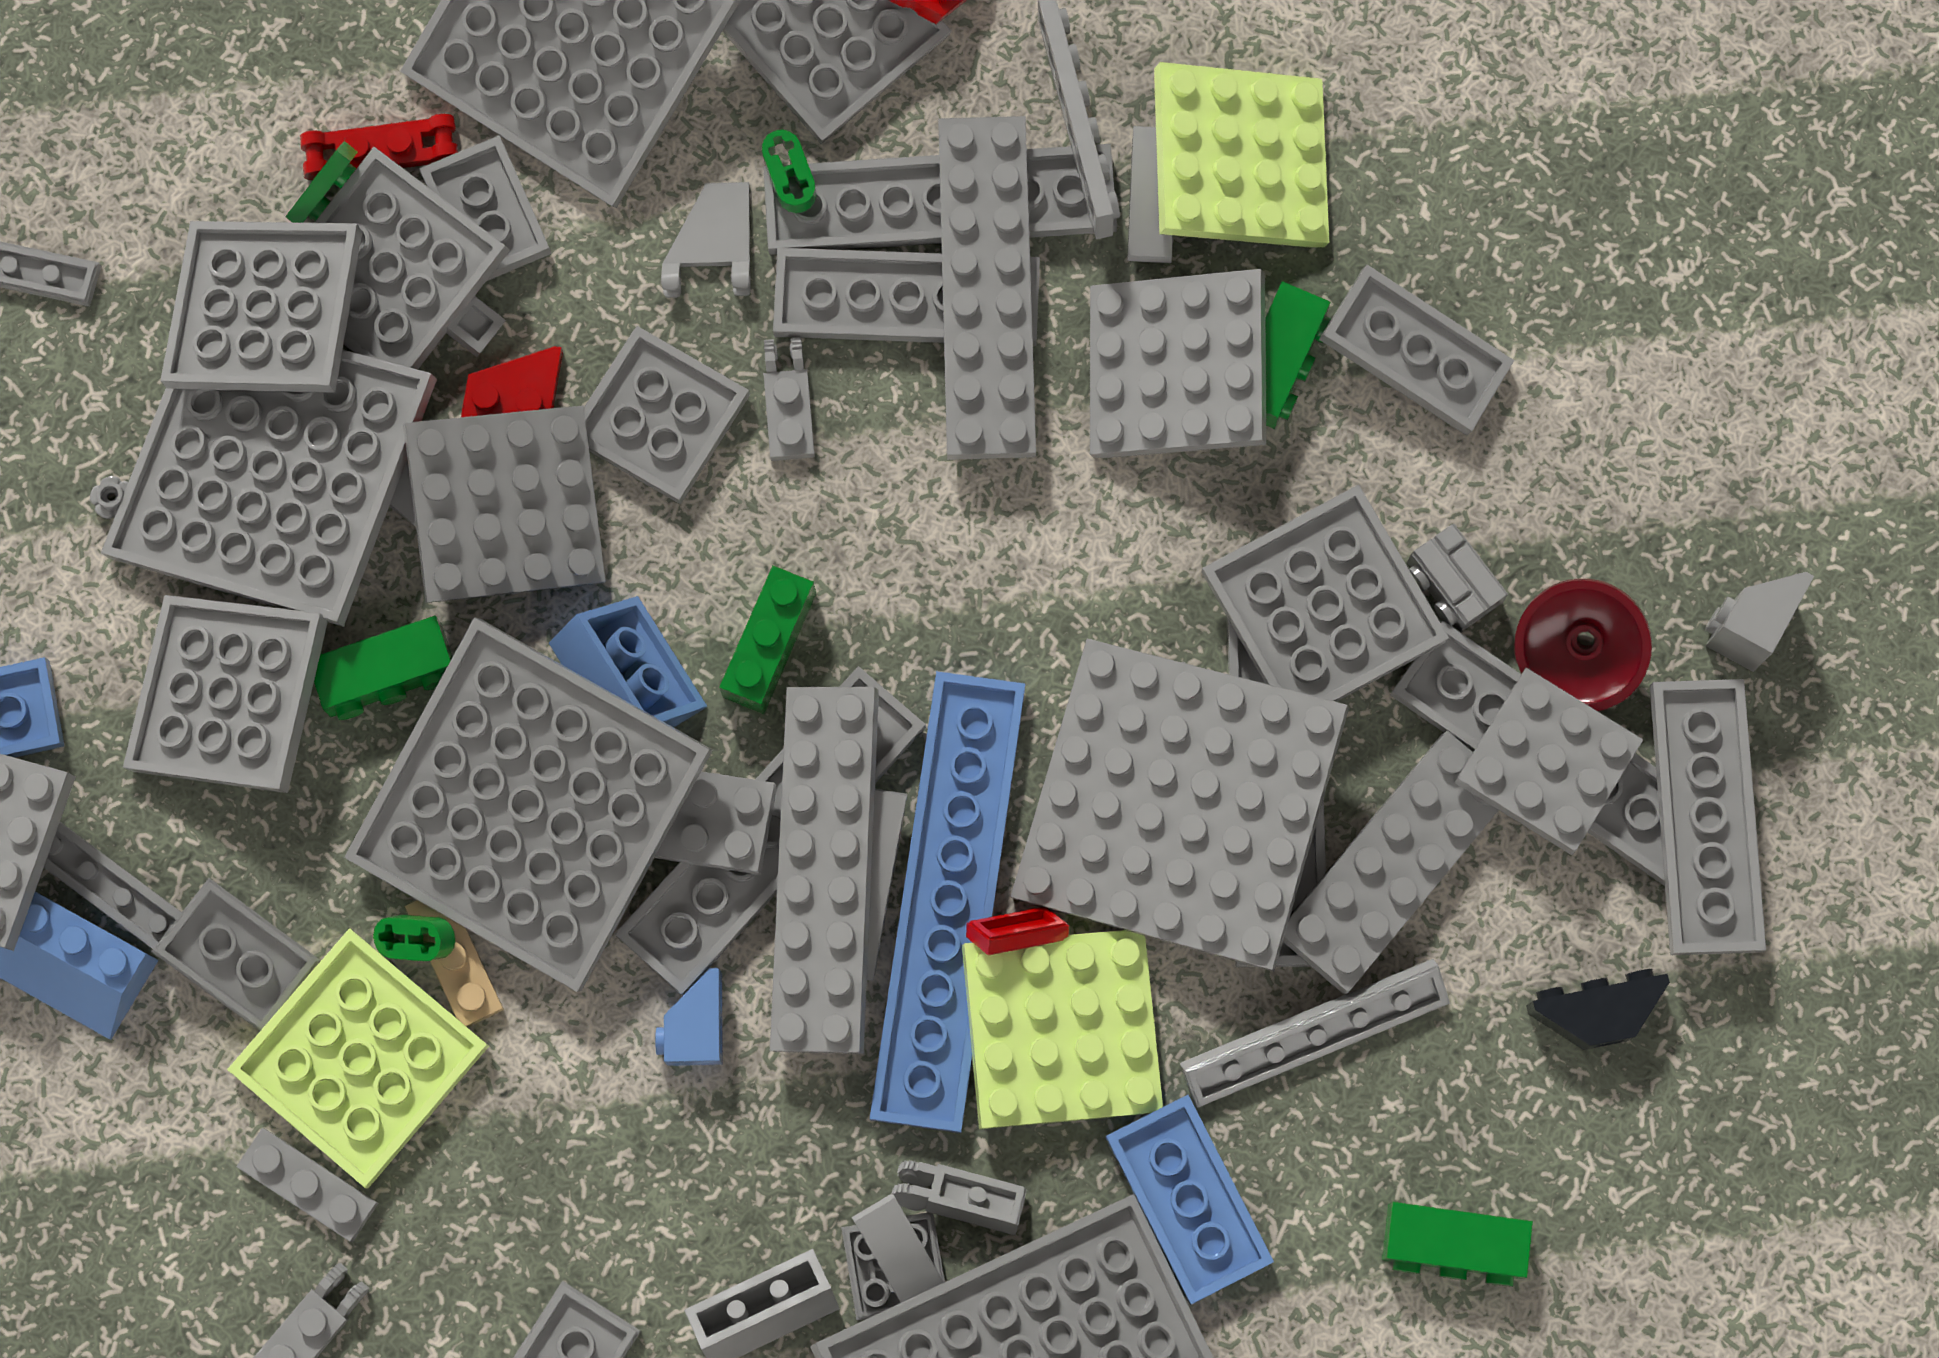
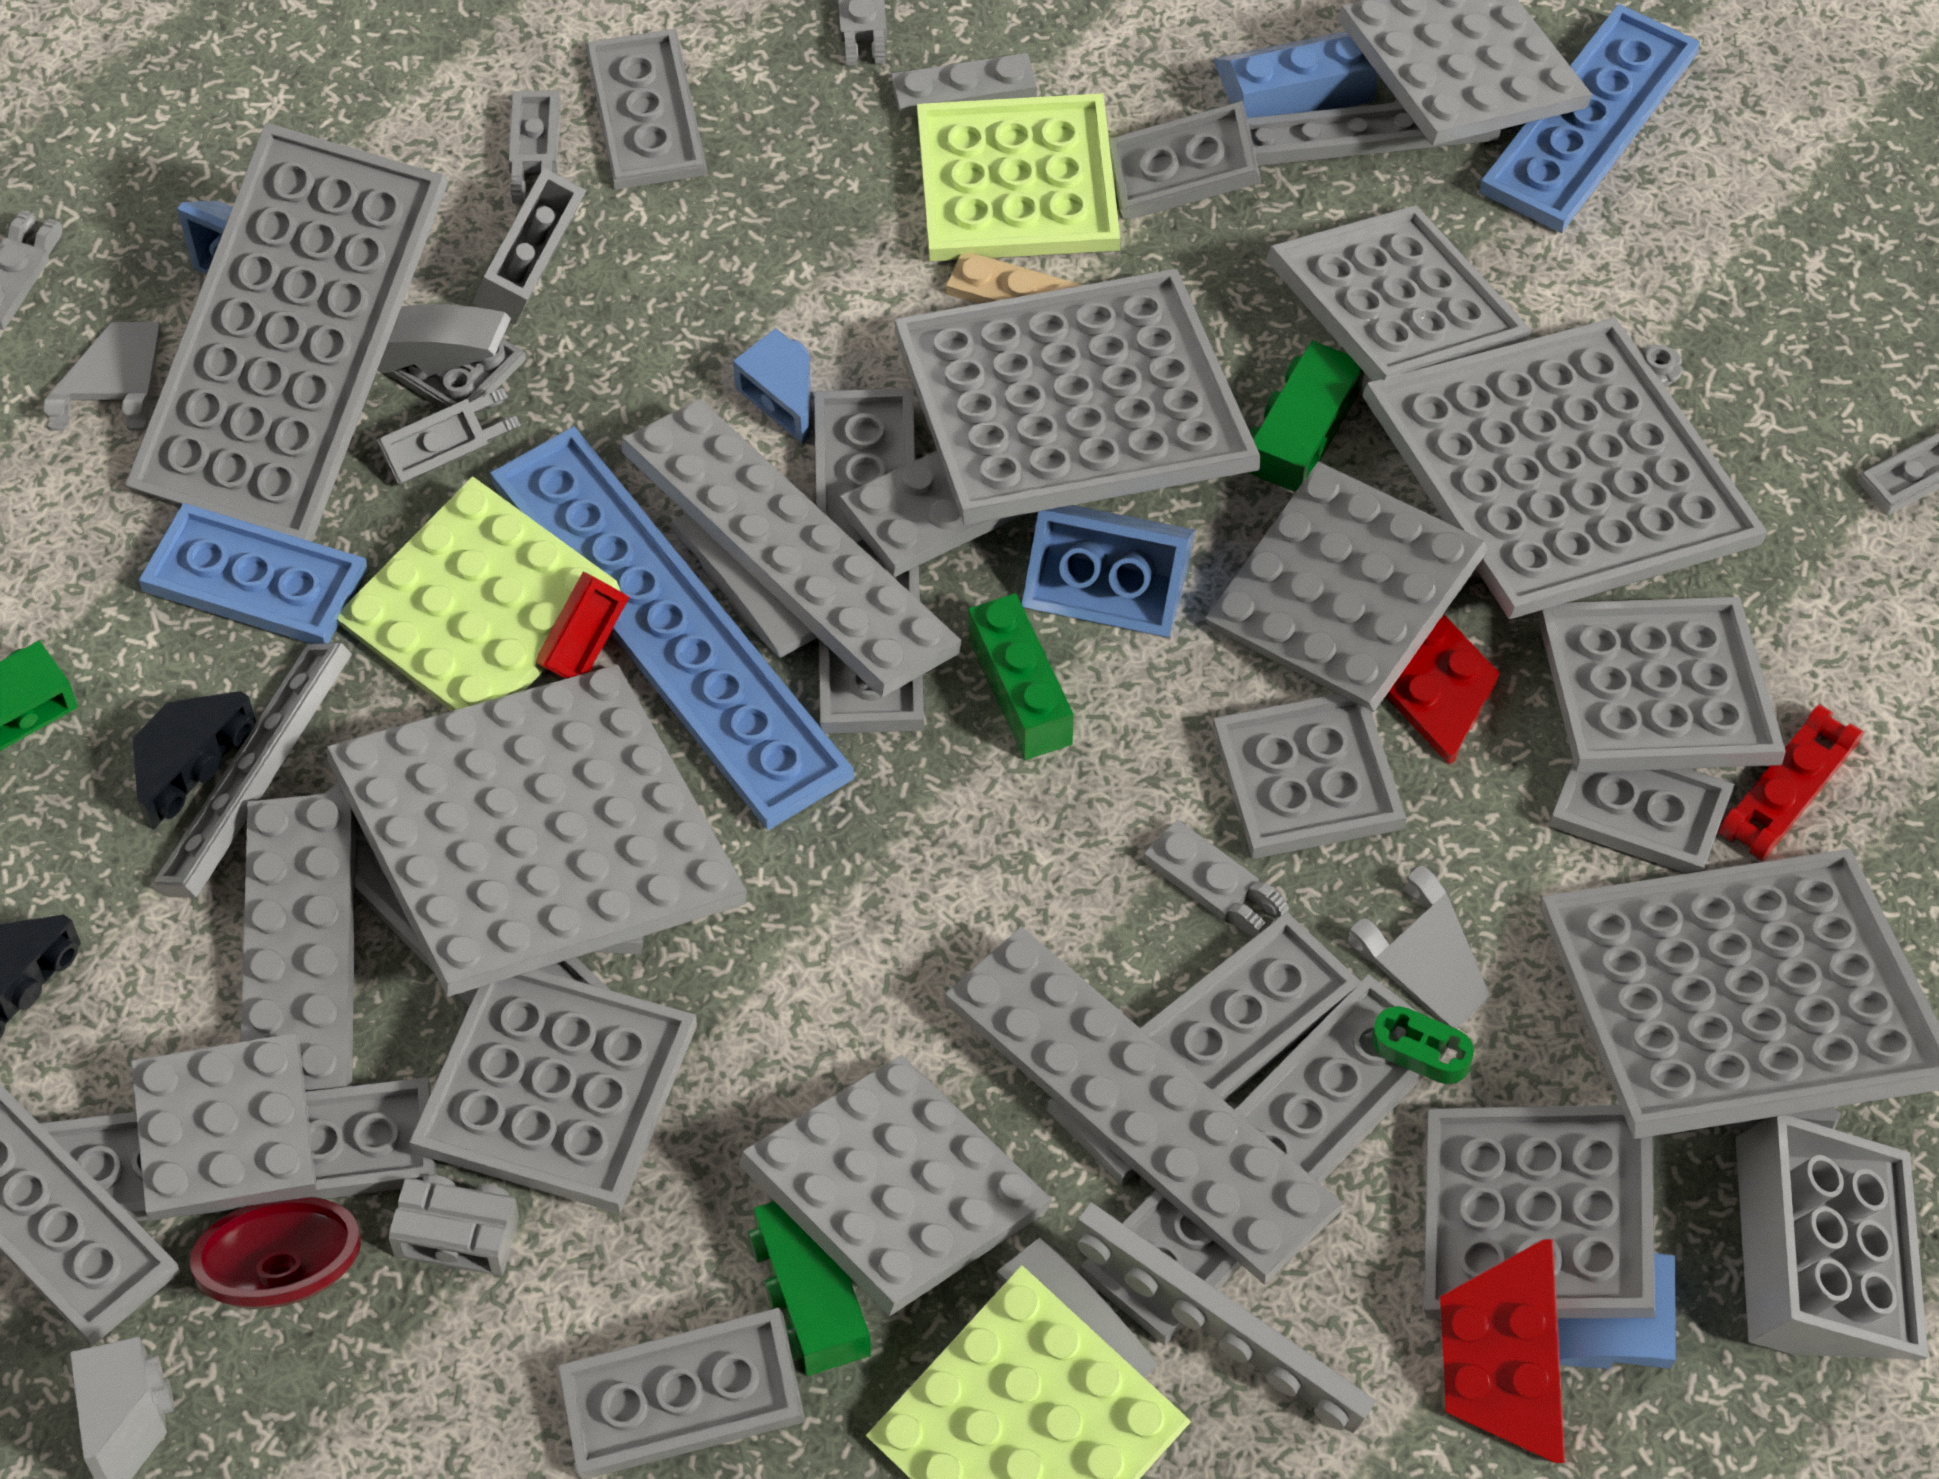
camera: 135 degrees right, 20 degrees down
(262, 306) = (1713, 557): light grey plate -> none
(336, 172) = (1787, 695): green plate -> none
(414, 947) = (1062, 266): green beam -> none
(475, 326) = (1537, 710): light grey plate -> none
(1353, 1087) = (185, 748): none -> black slope

